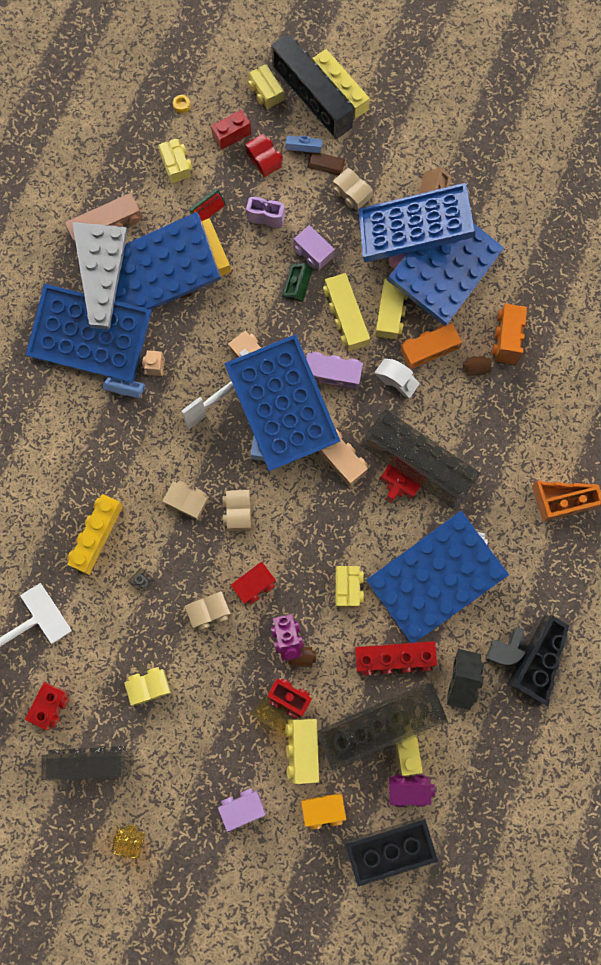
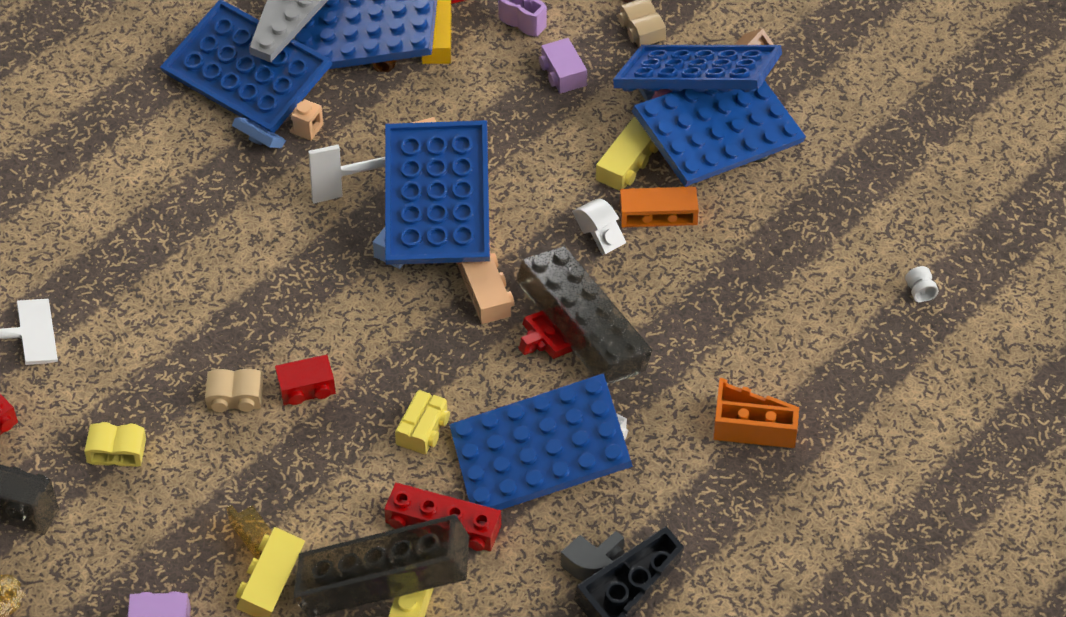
camera: 20 degrees right, 25 degrees down
(95, 534) = (140, 266): yellow brick -> none
(141, 581) = (170, 336): clear smoke tile -> none
(185, 500) = (269, 268): tan brick -> none
(238, 510) = (327, 299): tan brick -> none
(286, 633) = (315, 442): magenta brick -> none
(289, 698) = (282, 508): red brick -> none
(297, 282) = (527, 96): dark green slope -> none
(308, 657) = (324, 477): reddish brown brick -> none
(335, 370) = (524, 194): lavender brick -> none
(346, 311) = (570, 141): light yellow brick -> none
(465, 679) = (516, 565): pearl dark grey brick -> none
(477, 365) = (708, 245): reddish brown brick -> none
(509, 334) = (766, 224): orange wedge -> none

